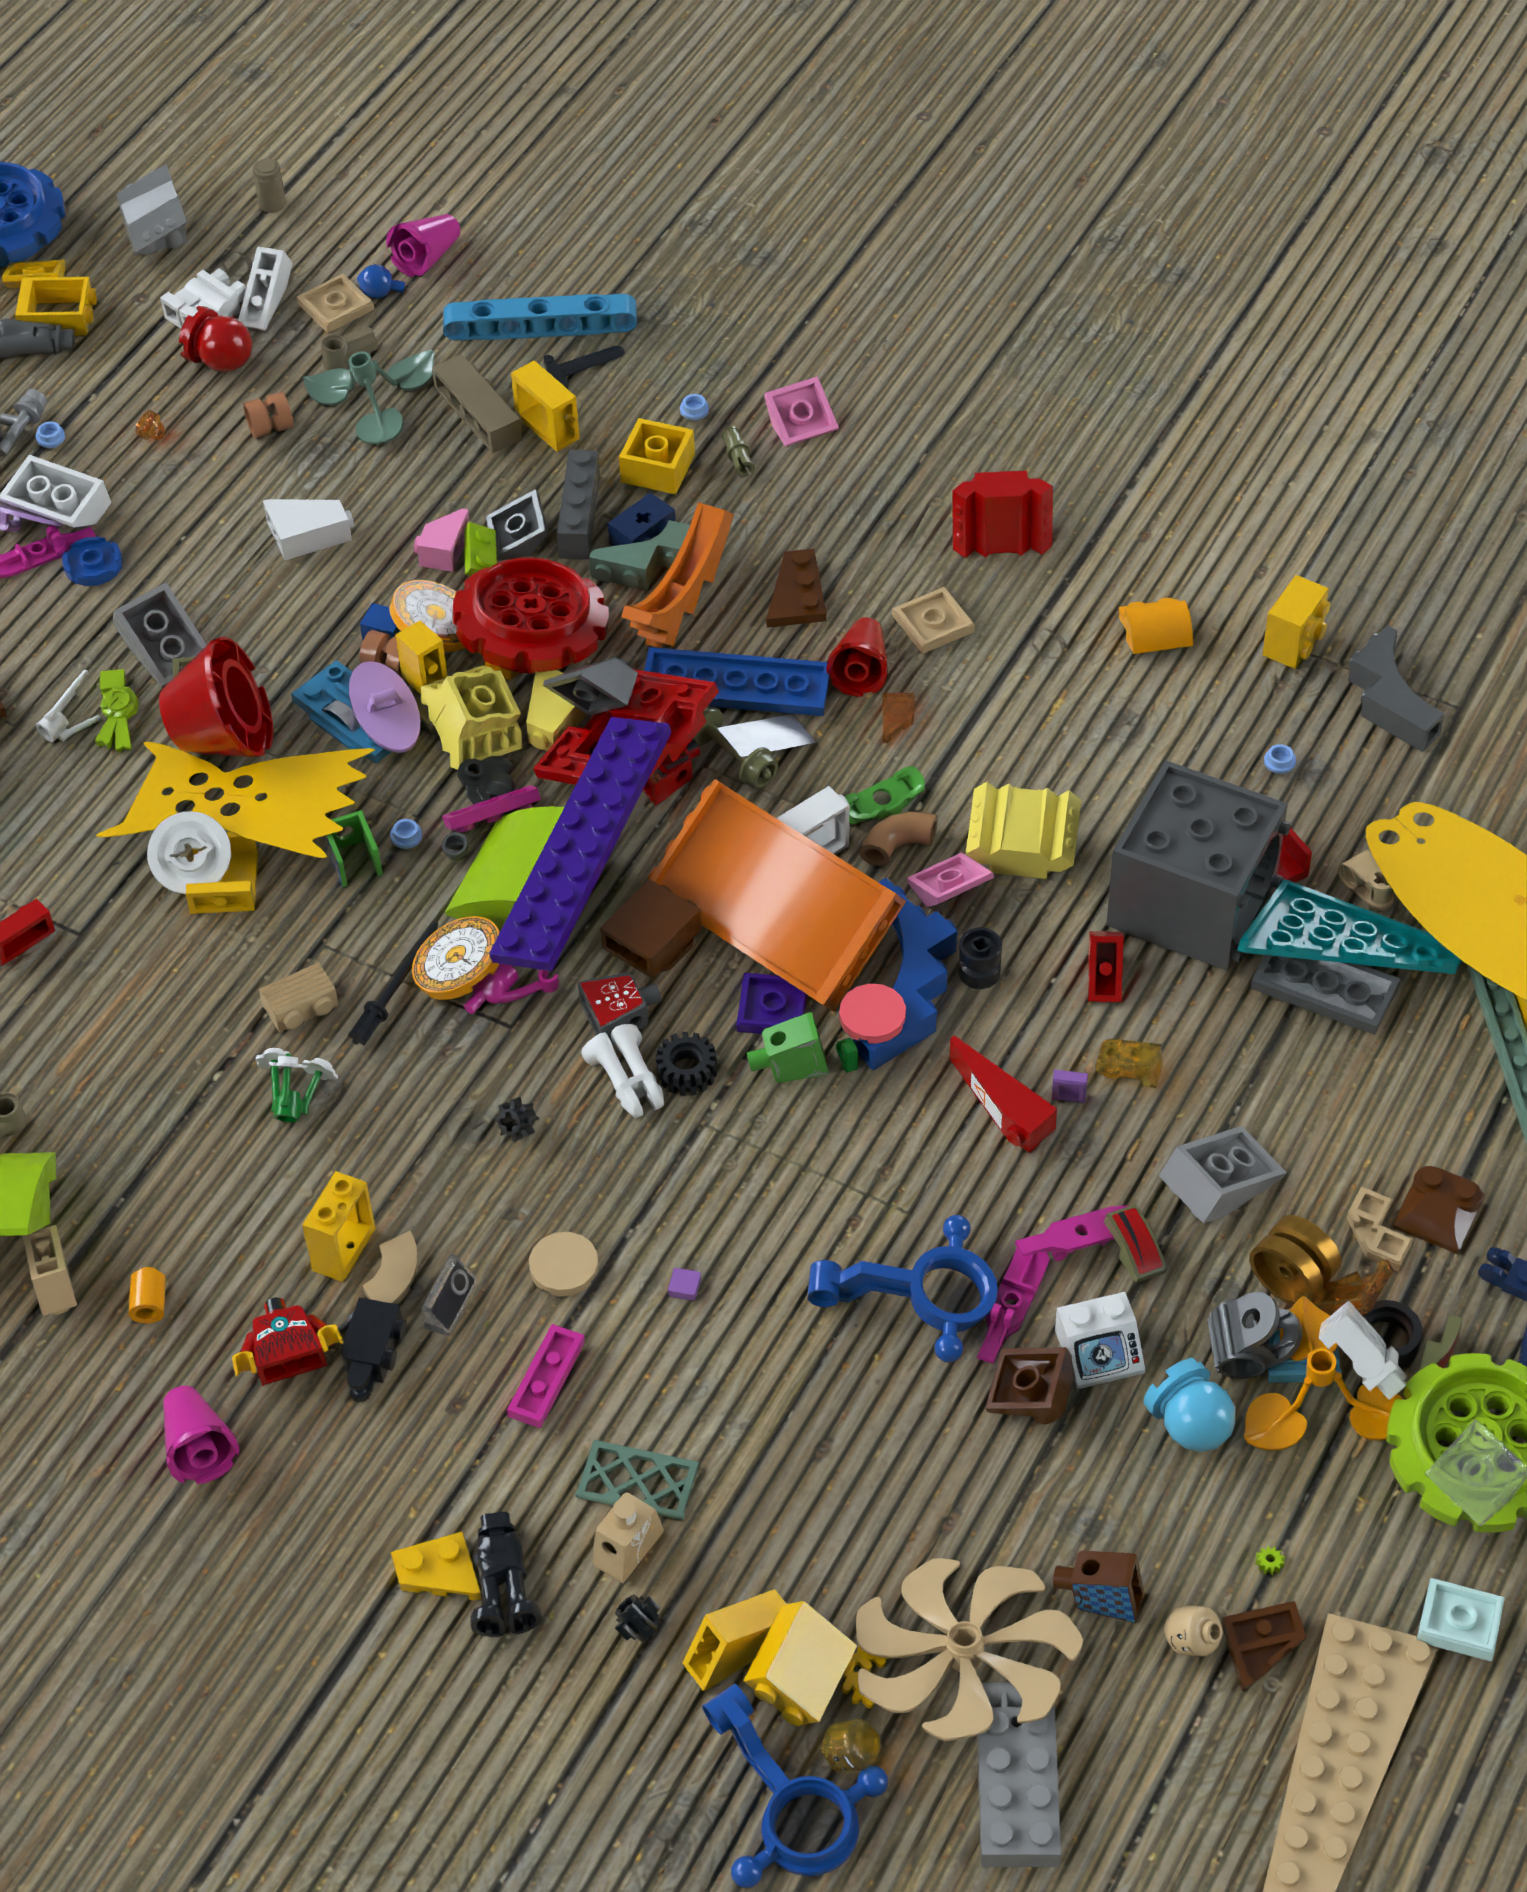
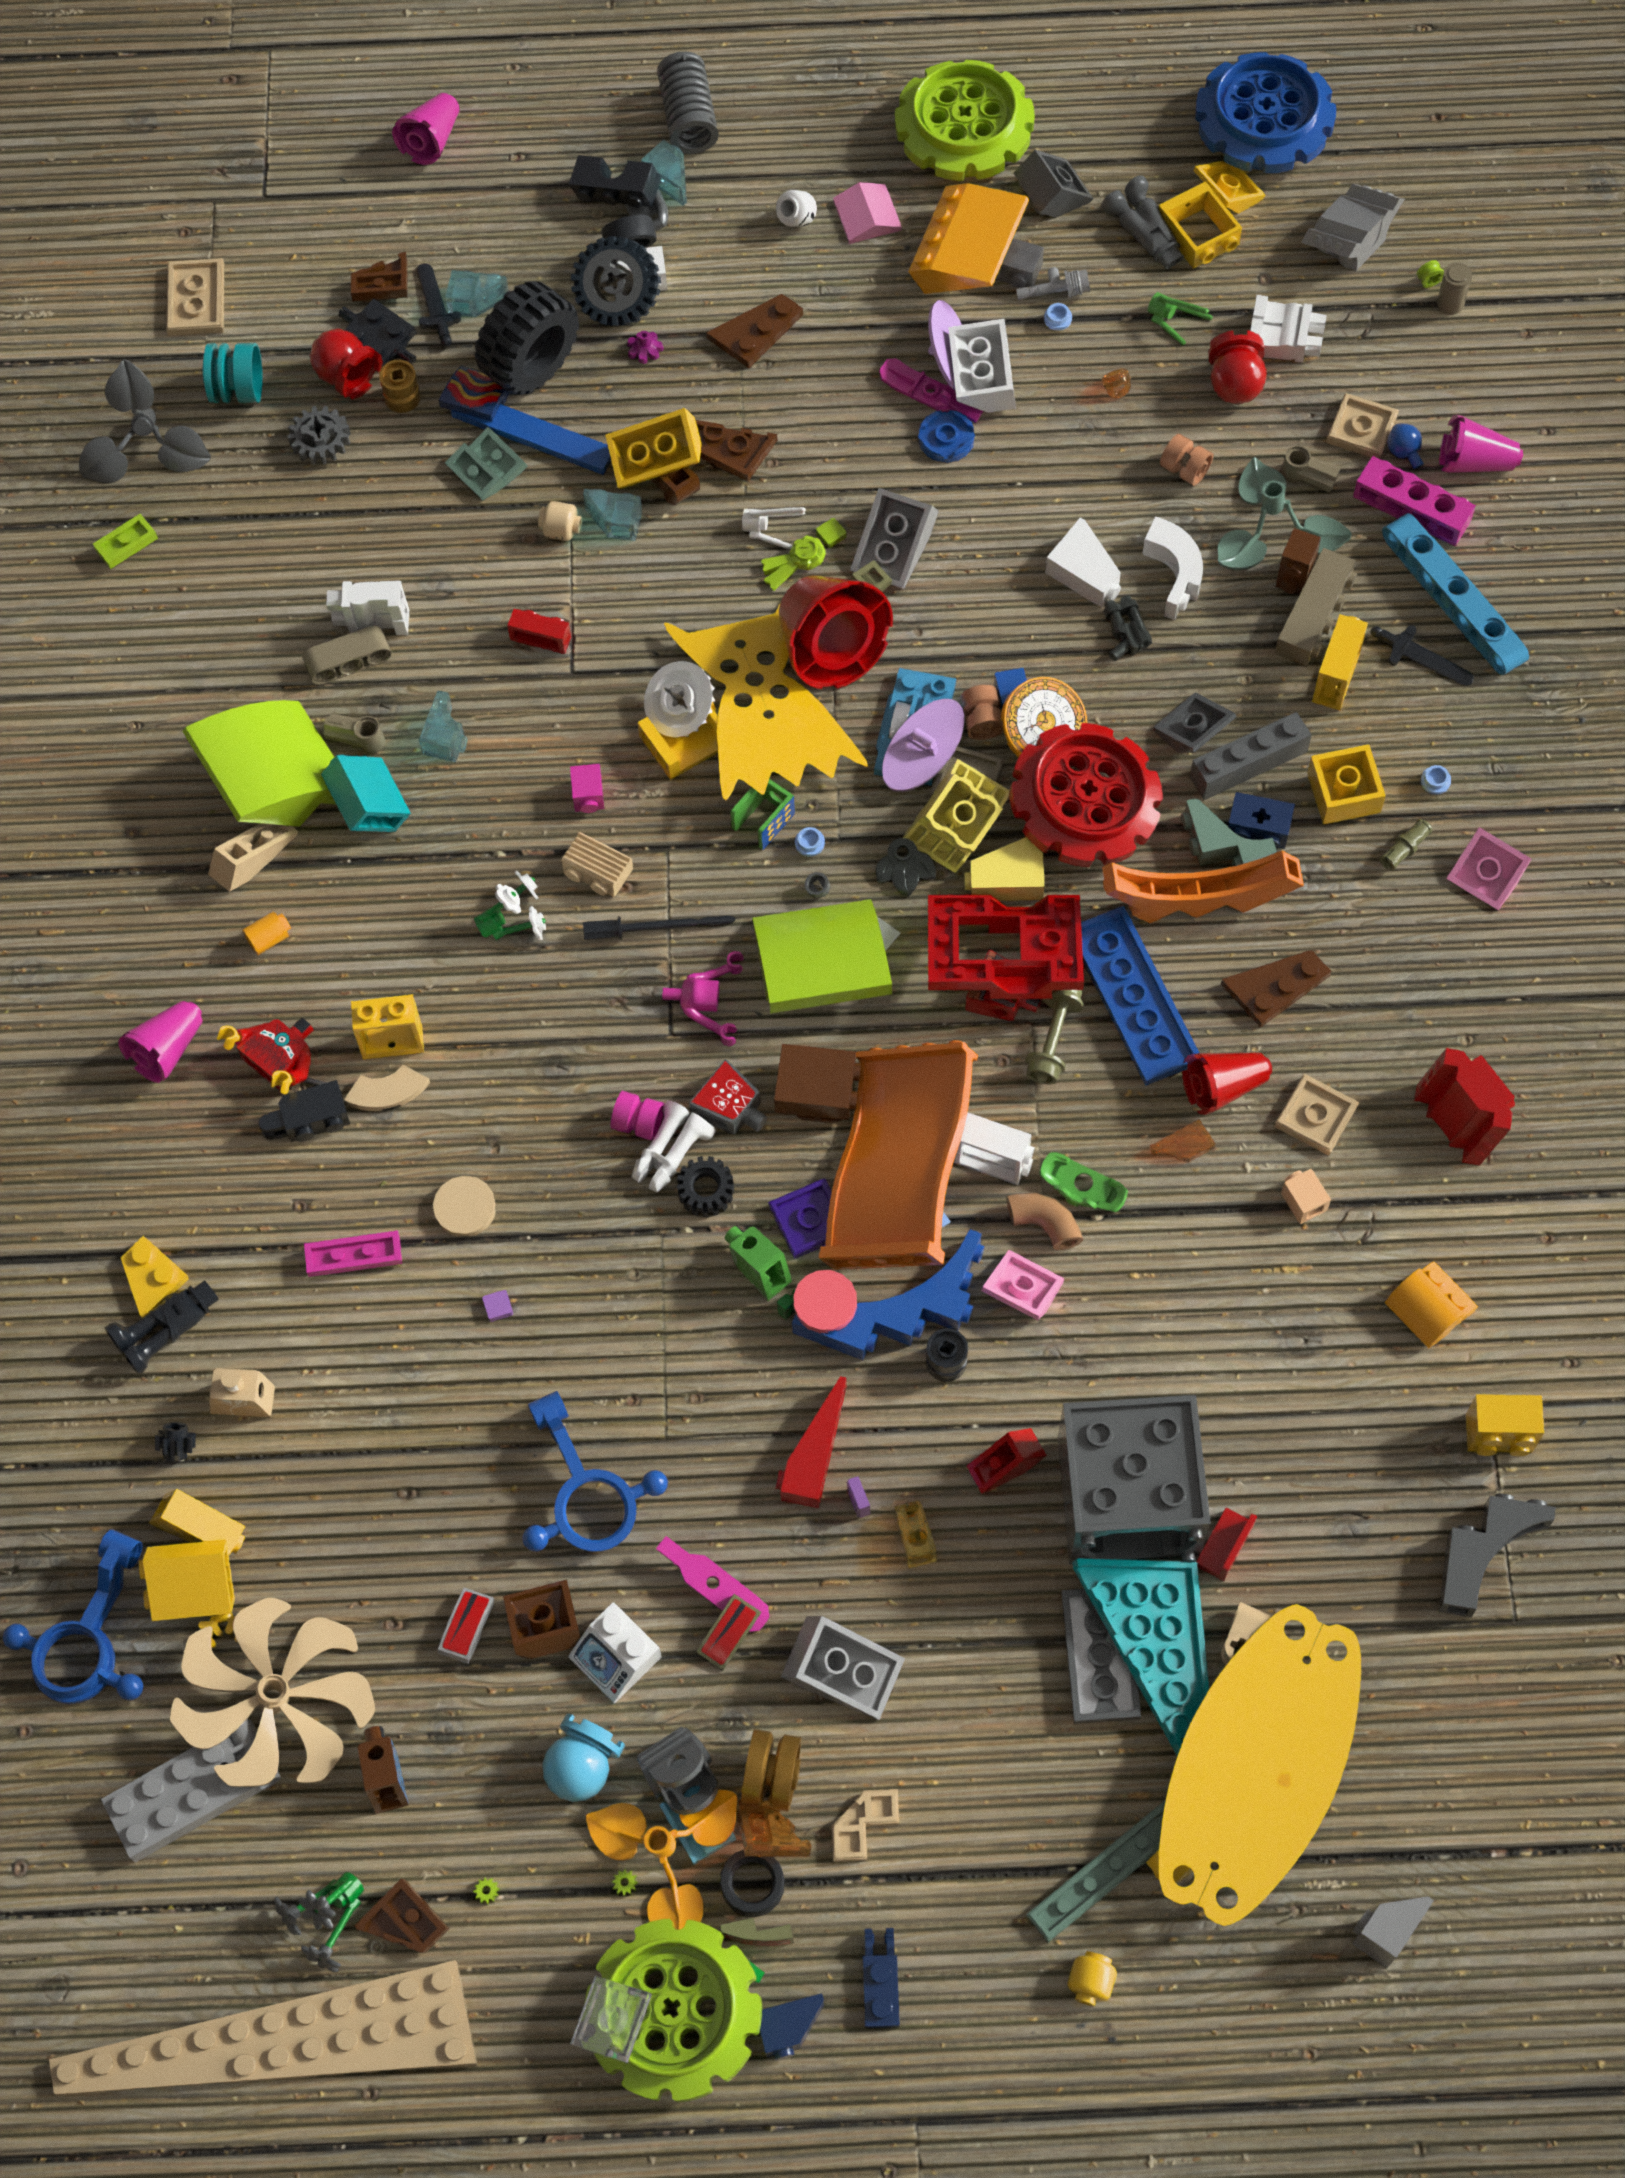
camera: 60 degrees right, 15 degrees up
(57, 1054) = (441, 734): none -> clear light blue arch
(73, 1136) = (365, 793): none -> teal brick
(109, 363) = (1165, 307): none -> bright green plant
(214, 969) = (587, 788): none -> dark pink brick
(238, 197) = (1430, 274): none -> lime bush
(265, 287) = (1332, 364): white slope -> none
(357, 461) = (1178, 551): none -> white arch
(395, 529) = (1132, 635): none -> pearl dark grey piece
(420, 655) = (980, 740): yellow brick -> none
(424, 303) = (1398, 501): none -> dark pink brick
(431, 387) = (1297, 561): none -> reddish brown brick
(442, 541) = (1139, 678): bright pink slope -> none
(448, 1296) = (384, 1141): slope -> none
(455, 958) = (700, 955): tile -> none
(479, 548) = (1144, 713): lime plate -> none
(491, 809) = (873, 888): dark pink plate -> none
(516, 1119) = (572, 1092): black gear -> none
(580, 844) = (846, 978): dark purple plate -> none
(583, 1076) = (635, 1115): none -> dark pink wheel
(595, 686) = (1028, 887): dark grey slope -> none
(627, 1454) = (327, 1382): sand green window -> none
(771, 733) = (1087, 1053): flat silver sticker -> none
(851, 1745) = (145, 1655): clear yellow head -> none
(995, 1452) = (465, 1625): none -> slope
(1003, 656) = (1305, 1195): none -> light nougat brick
(1019, 1285) = (642, 1562): dark pink piece -> none
(1023, 830) = (1102, 1315): light yellow slope -> none
(1193, 1630) = (377, 1861): tan head -> none
(1220, 1685) = (341, 1893): none -> plant
(1280, 759) = (1340, 1491): light blue plate -> none
(1326, 1435) = (624, 1889): none -> lime piece
(1365, 1348) = (699, 1868): white hips -> none
(1440, 1208) = (912, 1866): reddish brown slope -> none
(1461, 1619) = (506, 2070): light aqua tile -> none

